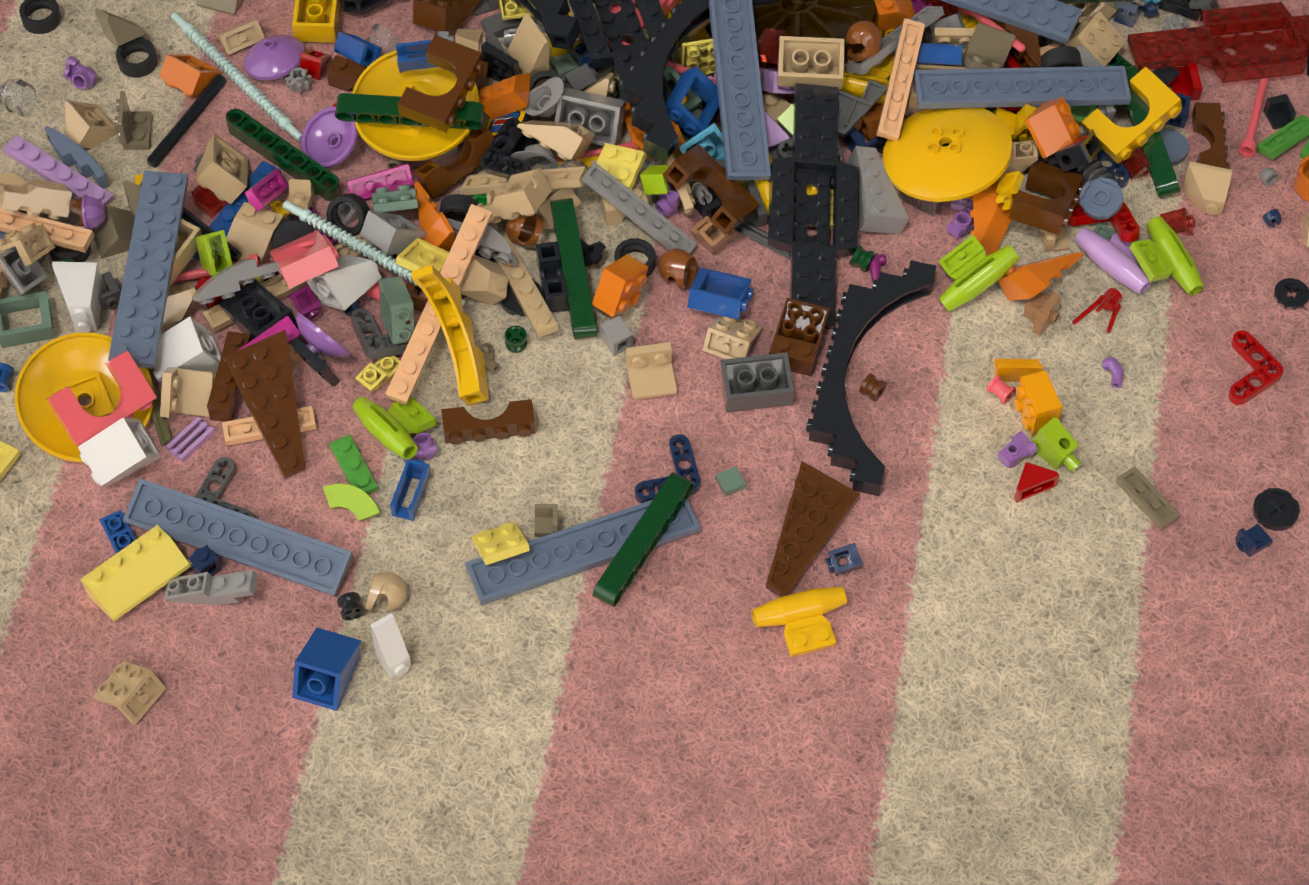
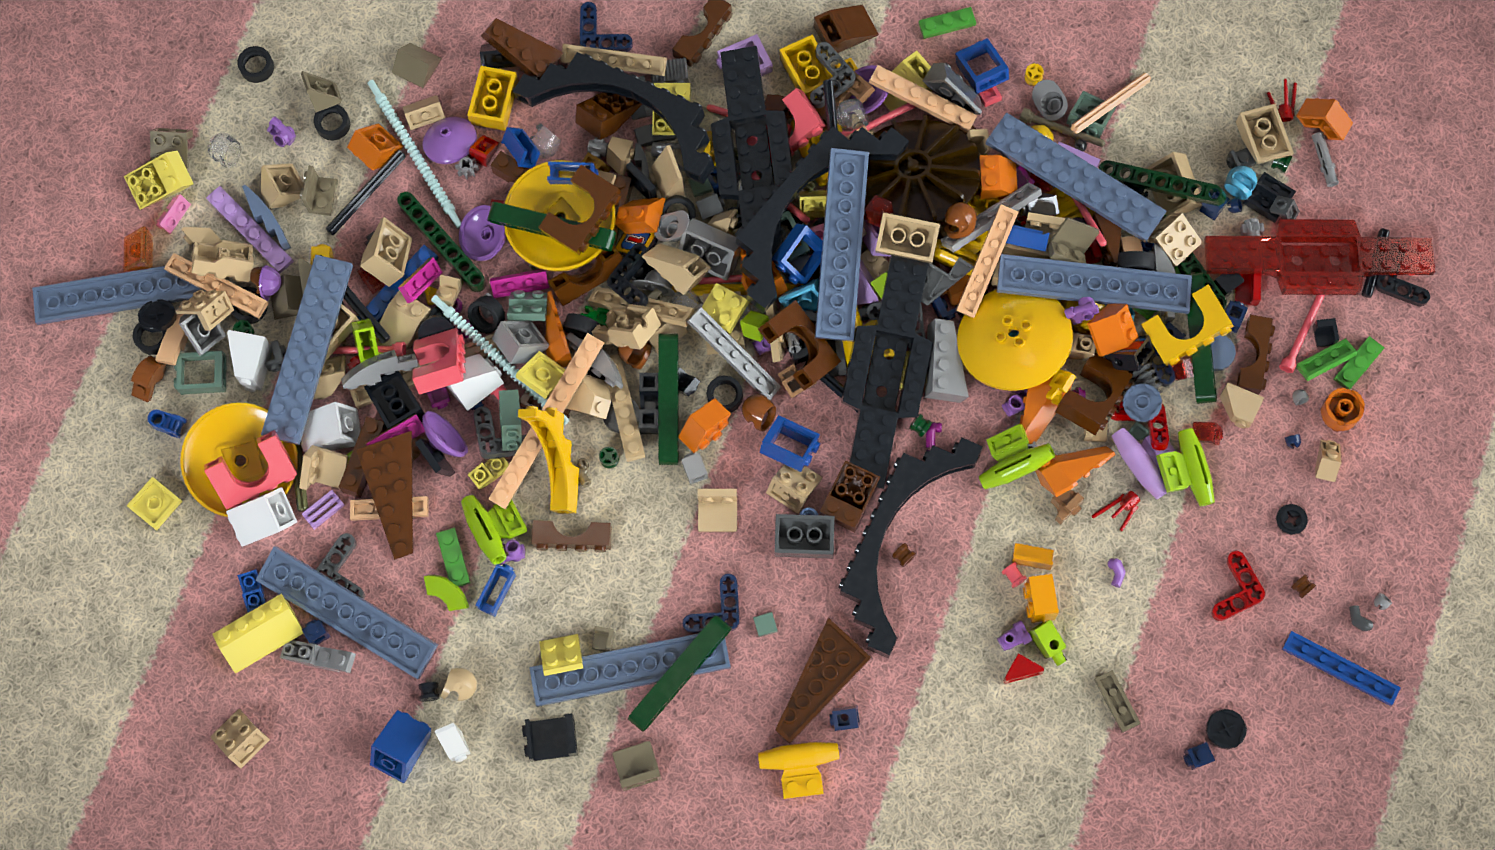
camera: 15 degrees right, 15 degrees up
(505, 635) = (550, 738): none -> black panel
(612, 648) = (636, 766): none -> dark tan bracket
(1018, 111) = (1085, 310): none -> medium lavender plate

